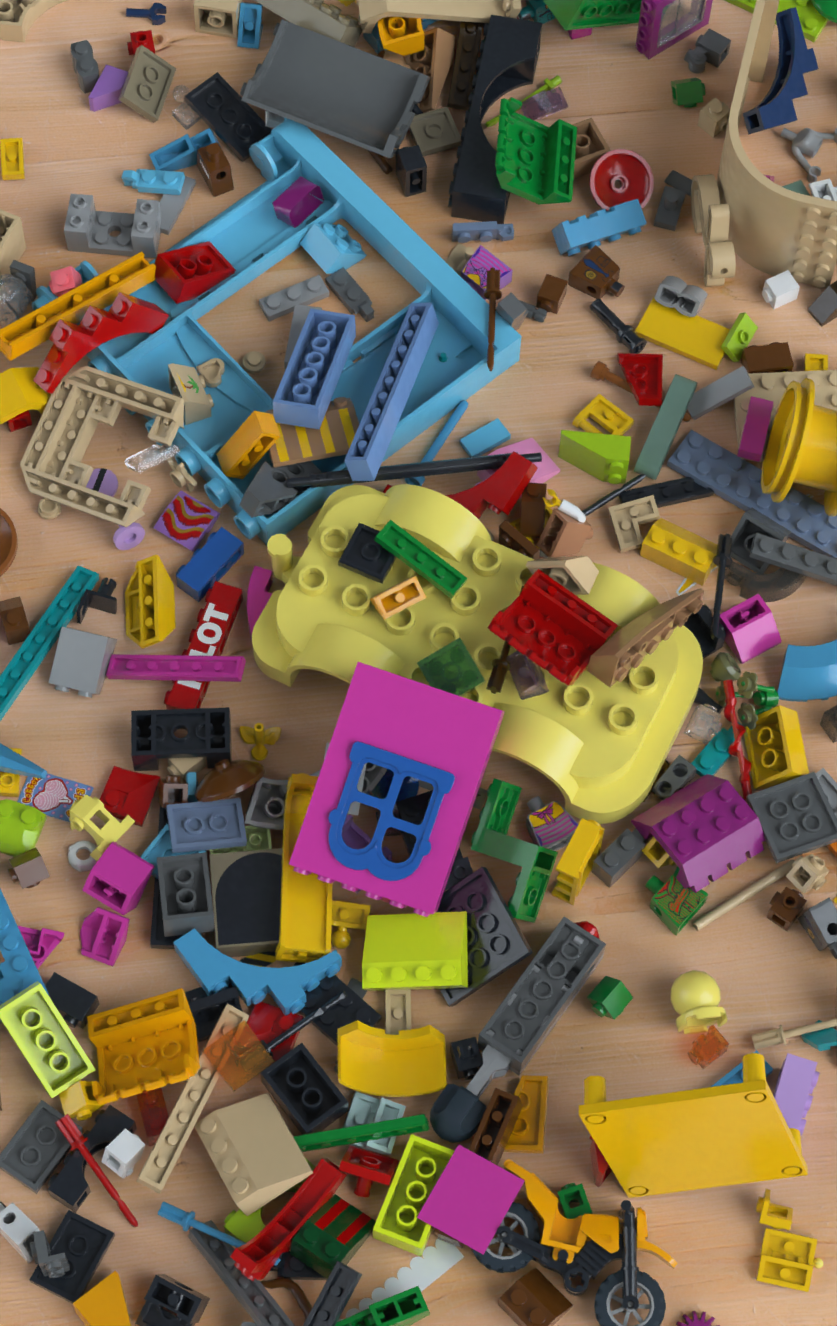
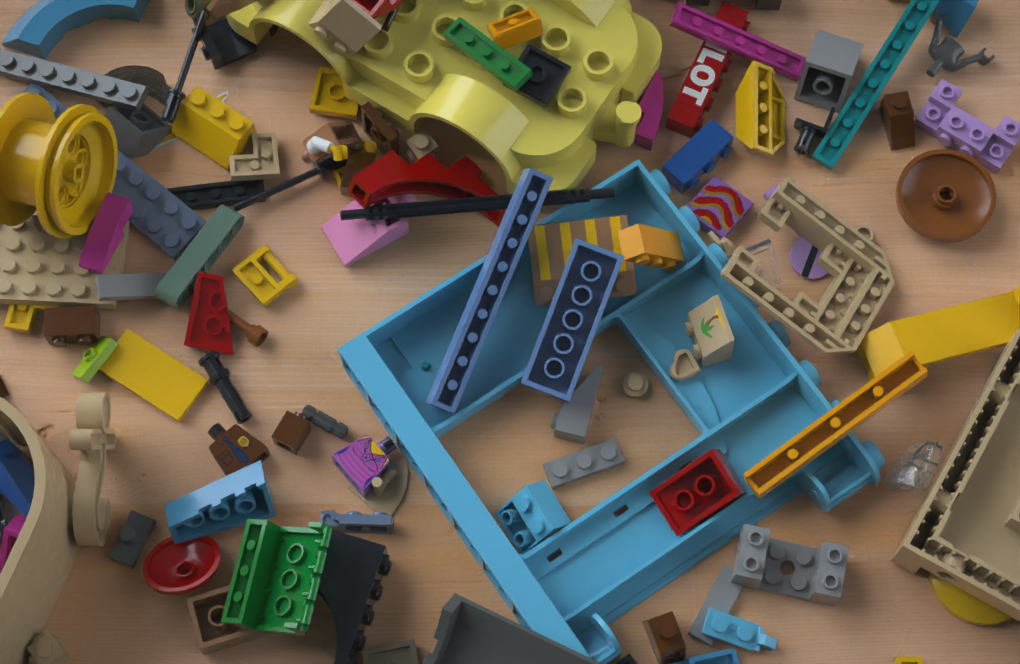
camera: 170 degrees left, 5 degrees up
(26, 274) = (895, 496): dark grey plate -> none
(64, 280) = (846, 461): coral brick -> none
(96, 327) = (807, 393): red arch -> none
(269, 488) = (637, 186): dark grey brick -> none
(296, 203) = (569, 571): magenta piece -> none
(350, 294) = (517, 458): dark grey hinge -> none
(411, 170) = (428, 608): black hinge -> none
(440, 440) = (473, 233): dark azure piece -> none
(485, 438) = (394, 271): medium azure tile -> none
(492, 293) = (360, 401): reddish brown piece -> none
(512, 311) = (344, 383): dark grey slope -> none
(597, 454) = (275, 224): lime slope -> none
(679, 182) = (105, 572): dark grey sticker -> none
(685, 298) = (146, 410): light grey brick -> none
(750, 629) = (167, 40): dark pink slope -> none
(780, 289) = (36, 410): white brick -> none

